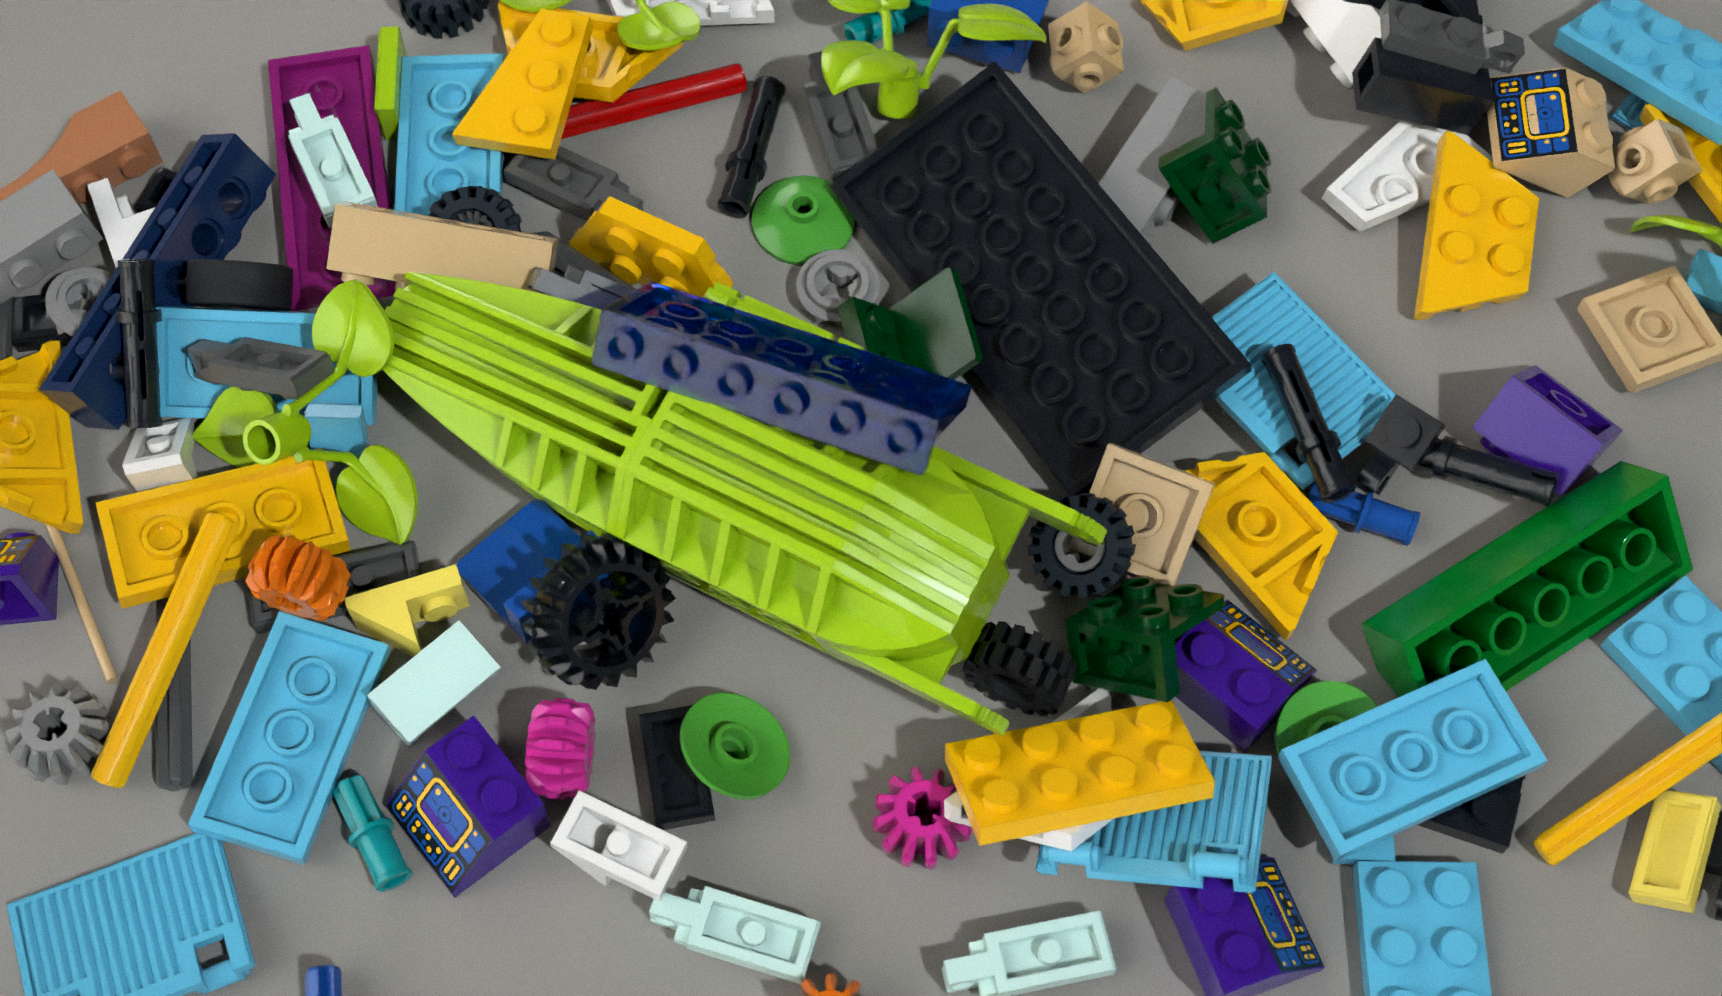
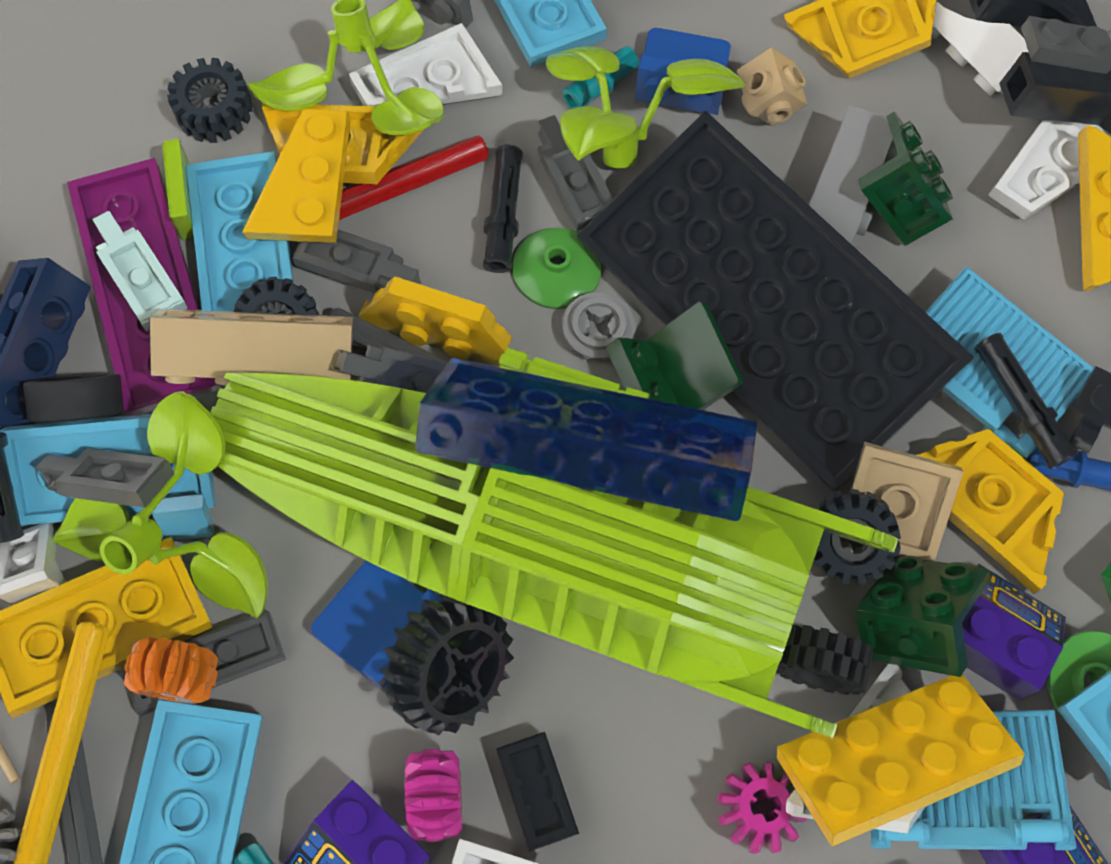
camera: 10 degrees left, 5 degrees up
(394, 609) = (262, 680): light yellow slope -> none
(432, 683) = (309, 748): light aqua hinge -> none
(744, 731) = (600, 756): bright green dish -> none

